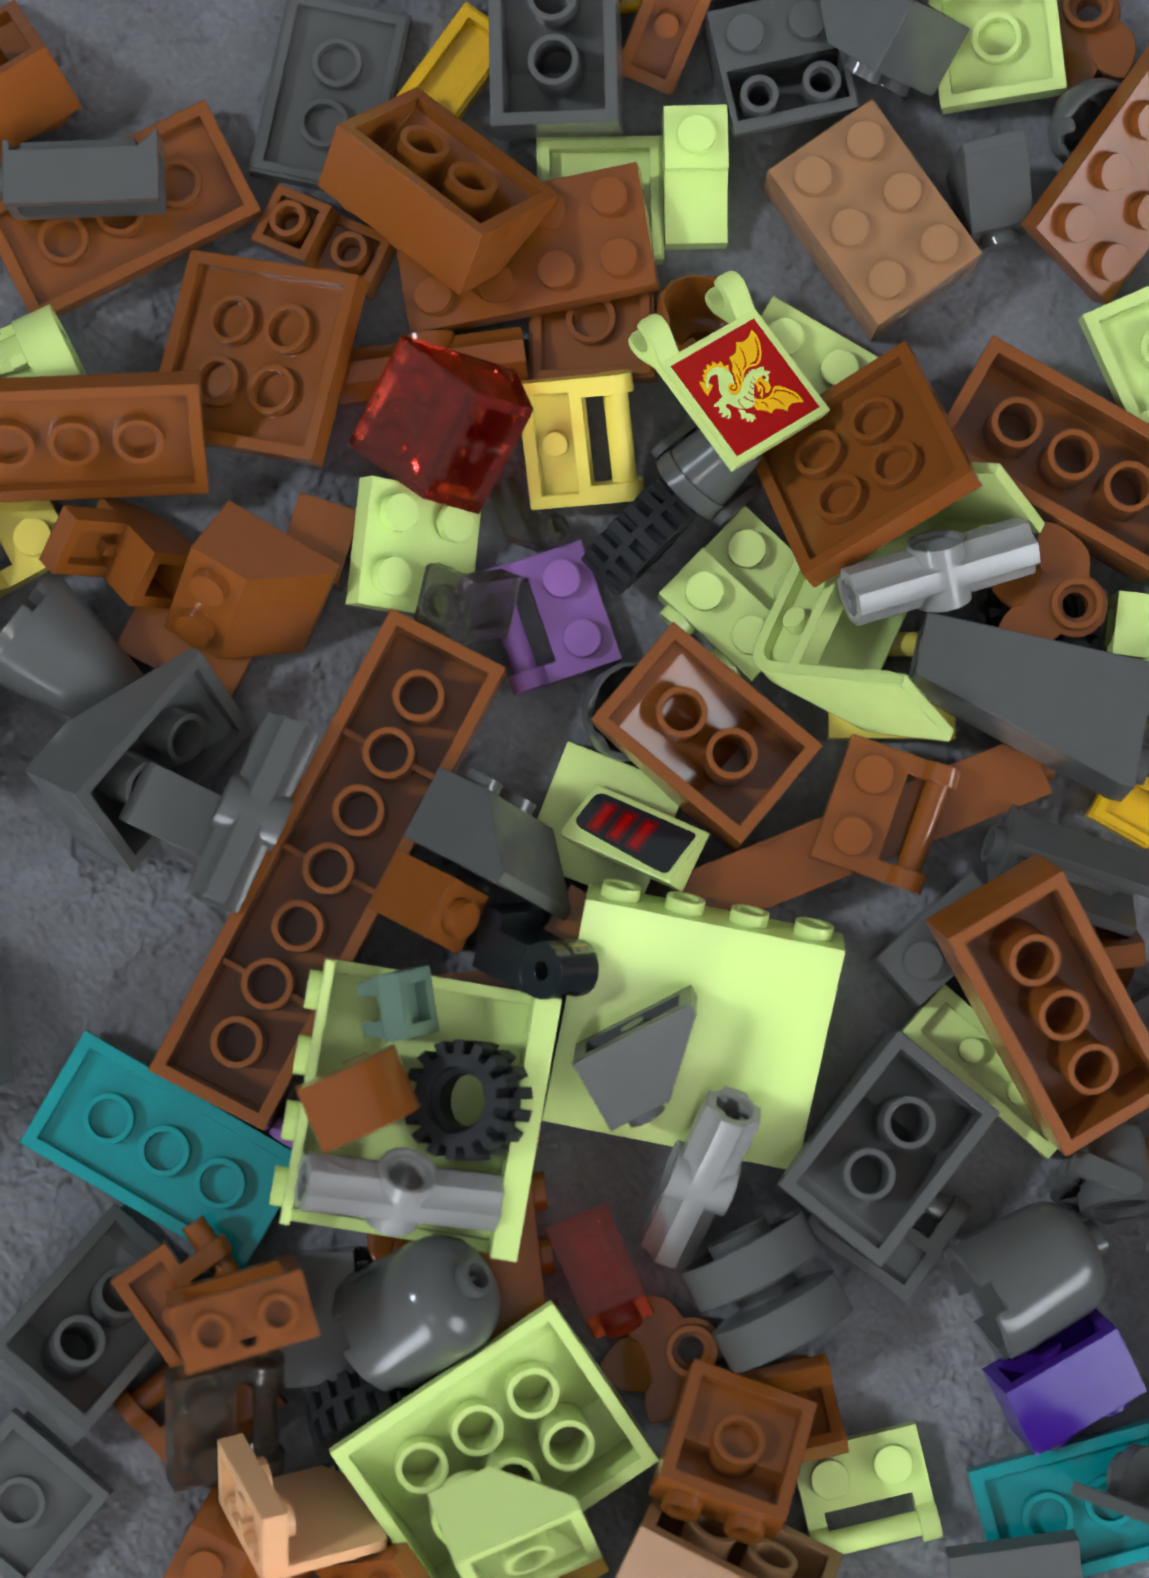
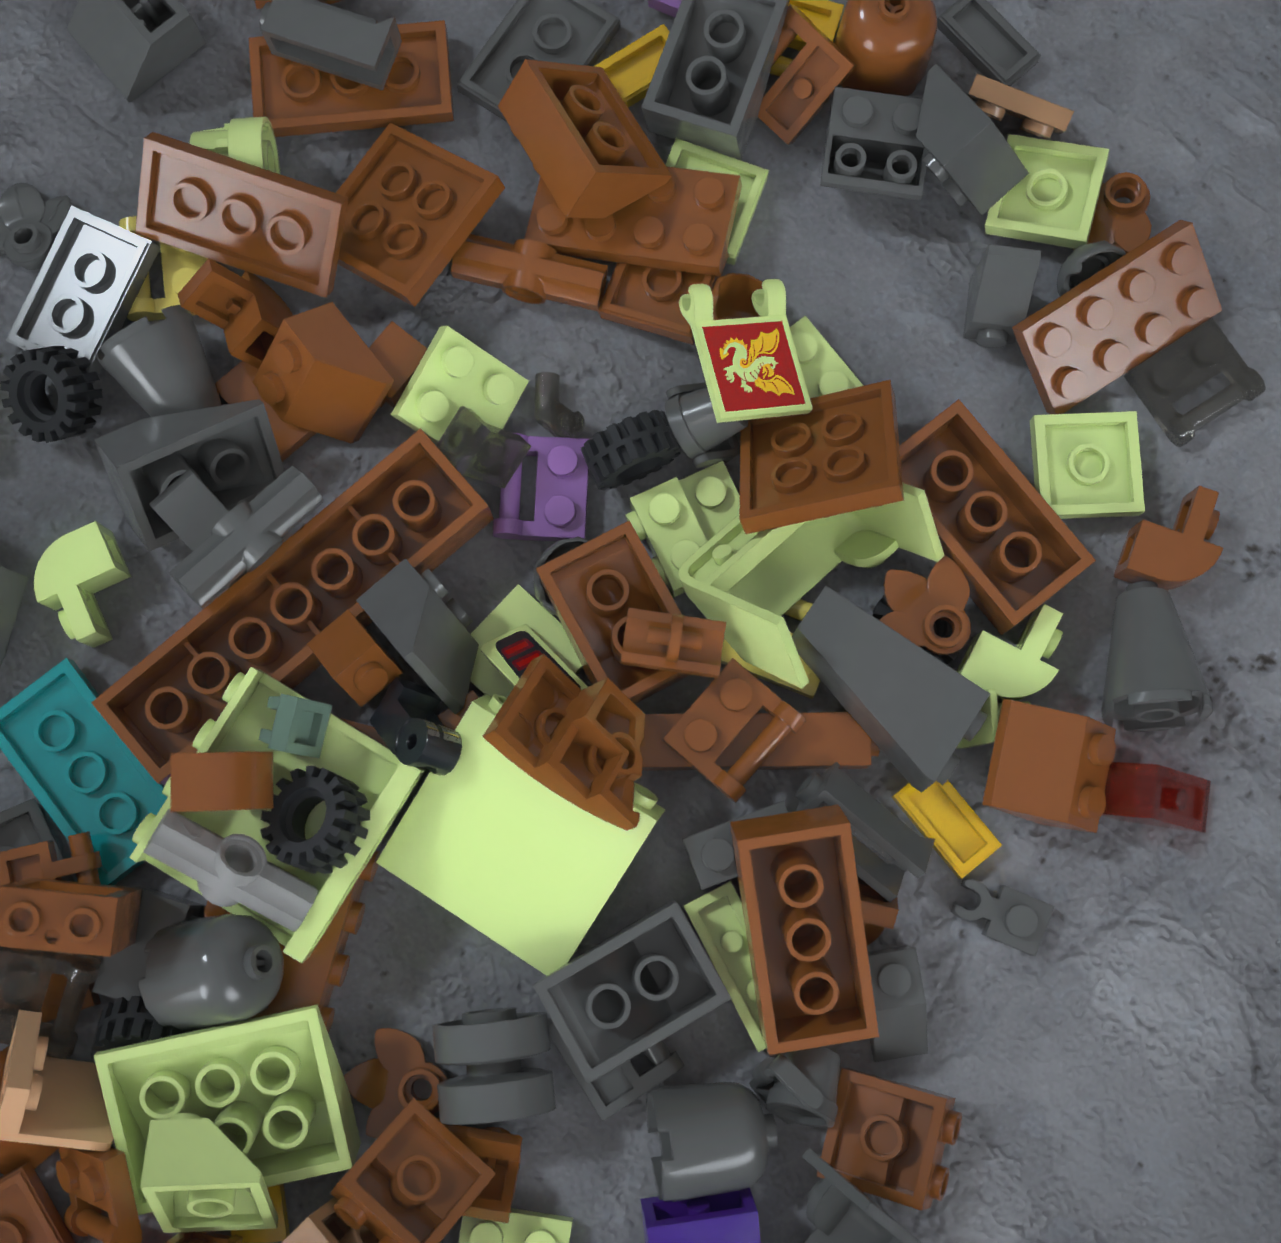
camera: 30 degrees right, 5 degrees down
(46, 931) = (72, 573): none -> yellowish green brick
(320, 238) = (484, 142): dark orange slope -> none
(443, 422) = (516, 307): clear red slope -> none
(560, 446) = (601, 360): light yellow plate -> none
(600, 1273) = (370, 999): clear red slope -> none
(637, 1060) = (460, 843): dark grey slope -> none
(695, 176) = (781, 206): yellowish green arch -> none
(700, 1176) = (478, 955): light grey piece -> none
(718, 897) = (574, 740): none -> dark orange slope
(784, 745) = (673, 643): none -> dark orange hips
(871, 220) = (901, 286): medium nougat brick -> none
(938, 570) = (846, 557): light grey piece -> none

